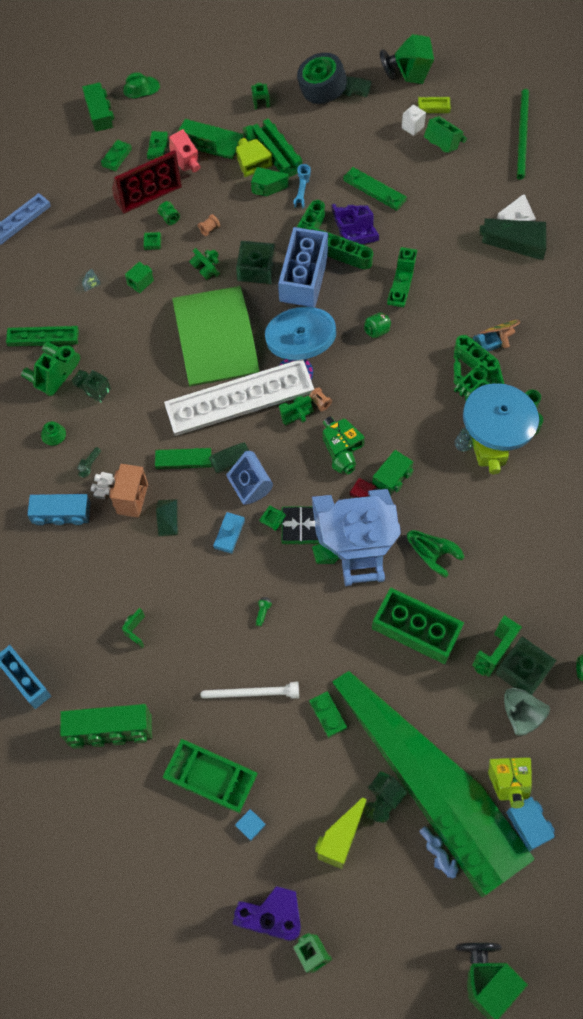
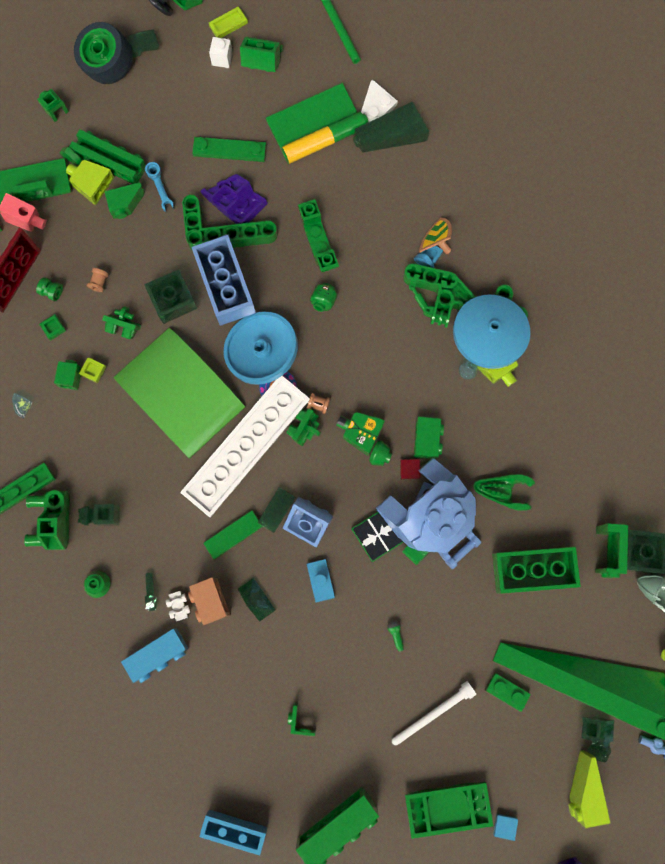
camera: 35 degrees left, 15 degrees up
(160, 283) = (92, 370): none -> lime plate
(272, 517) = (350, 544): green tile -> none
(456, 202) = (315, 123): none -> green door

